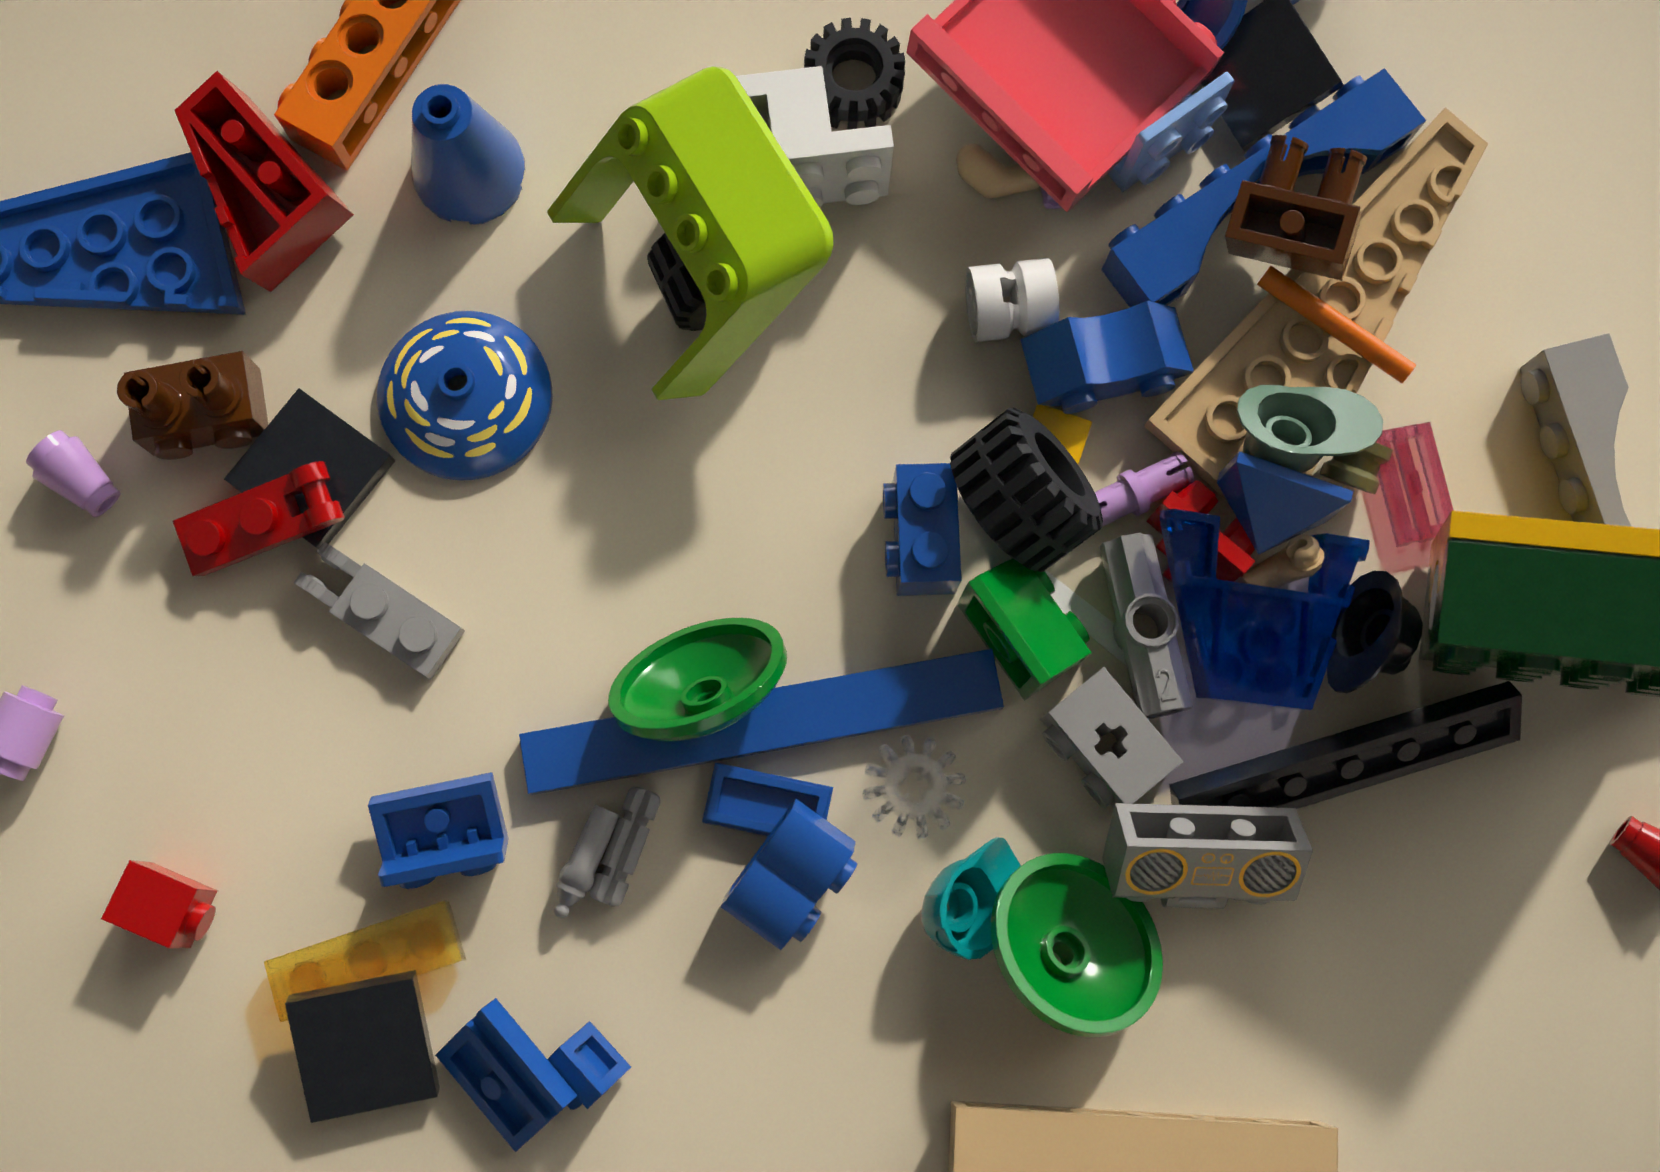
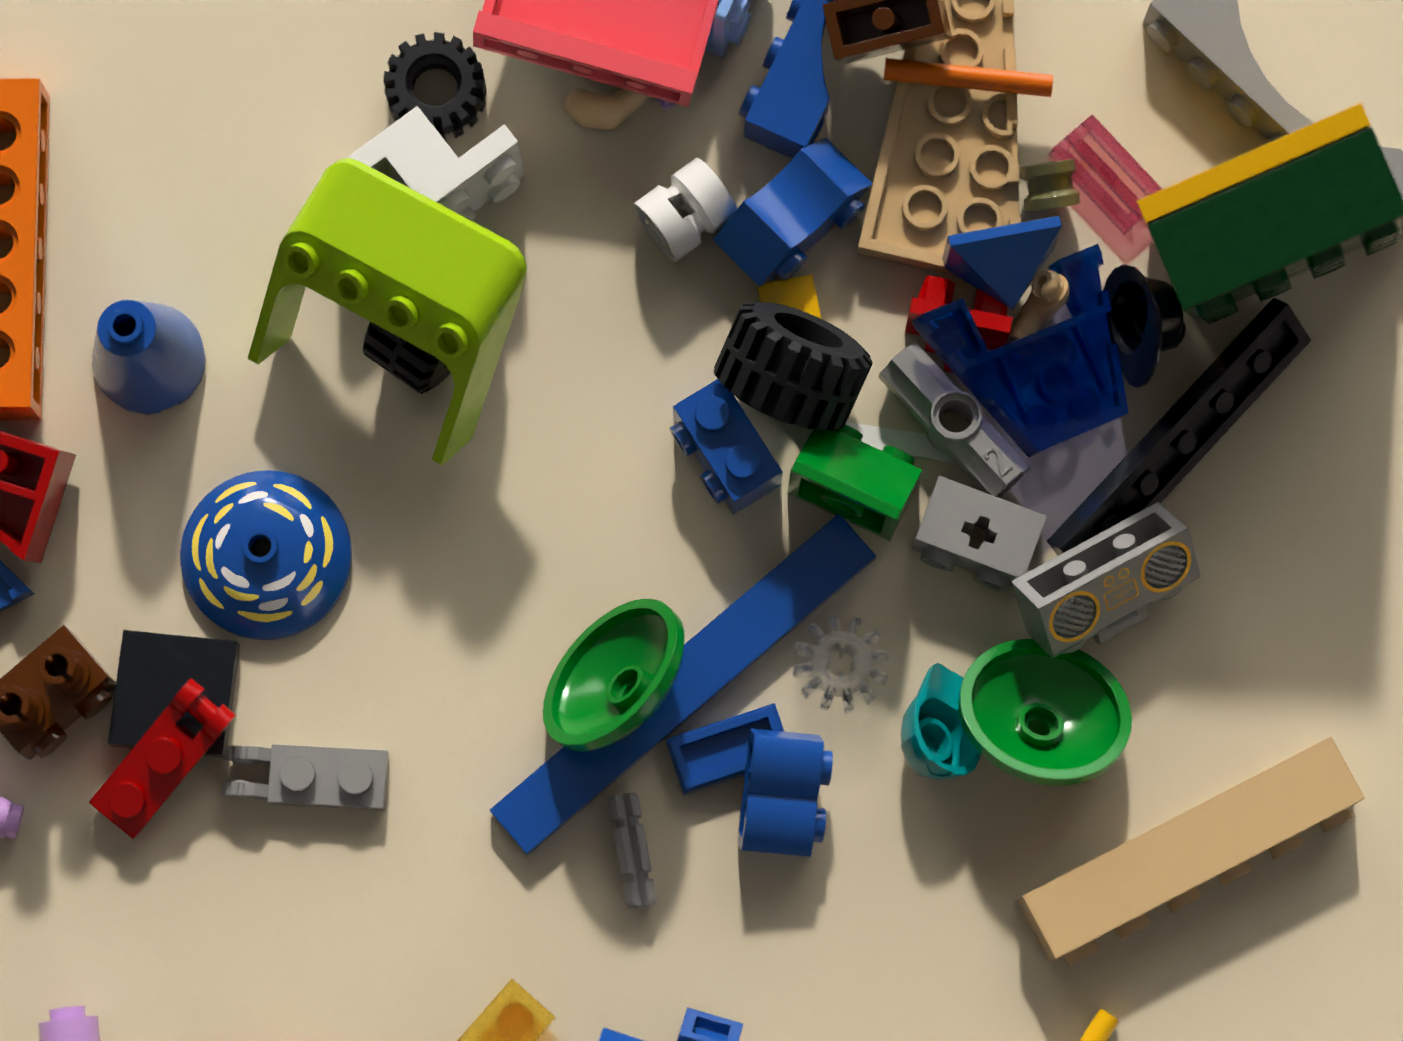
camera: 25 degrees left, 0 degrees up
(439, 831) = (472, 925): blue bracket -> none
(578, 873) = (607, 892): light grey piece -> none
(1138, 490) = (884, 310): lavender pin -> none
(1306, 423) = (989, 180): sand green piece -> none

